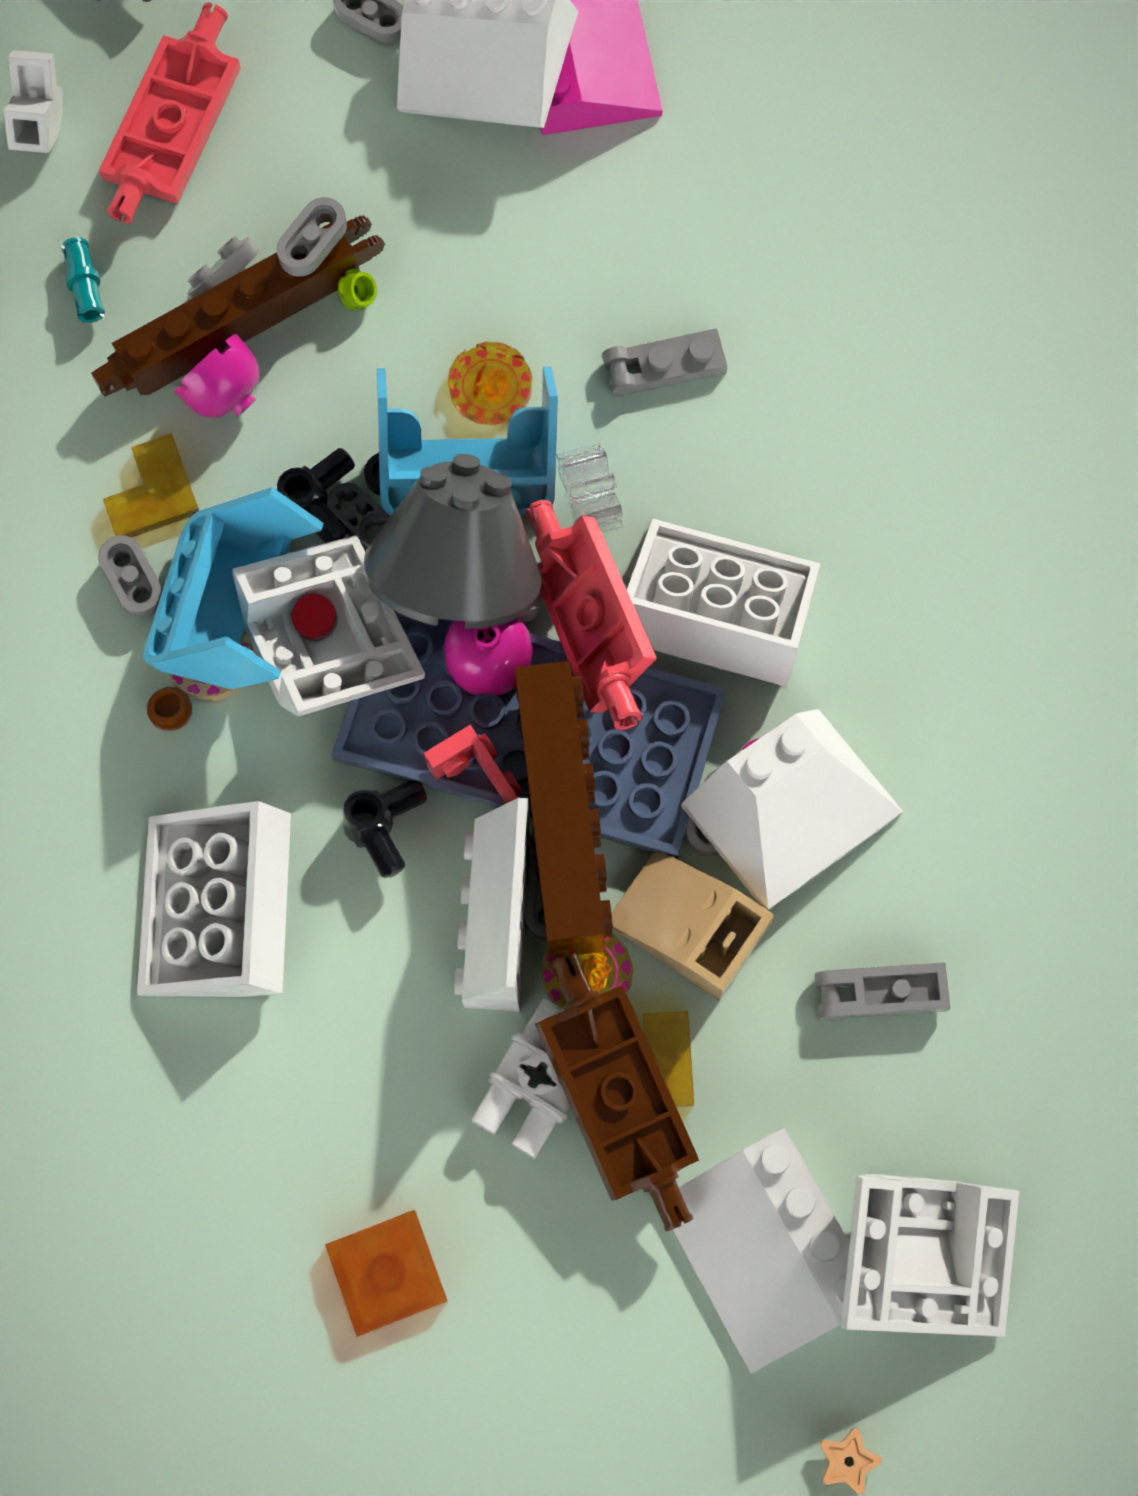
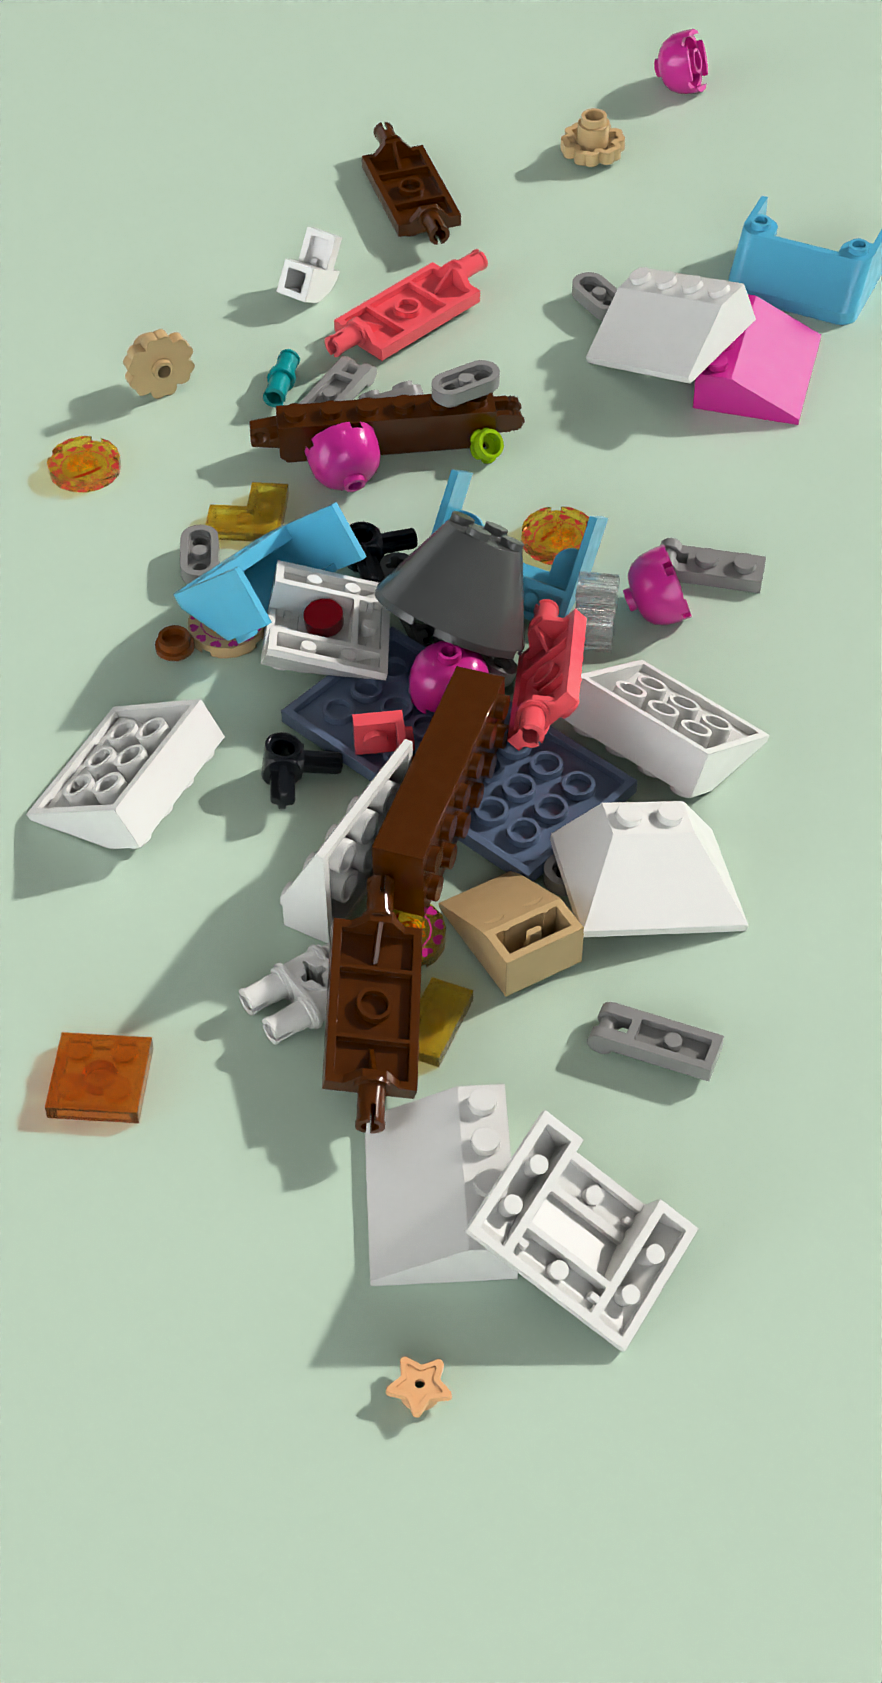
camera: 25 degrees right, 25 degrees down
(152, 272) = (342, 382): none -> light grey plate
(632, 428) = (656, 589): none -> dark pink cylinder

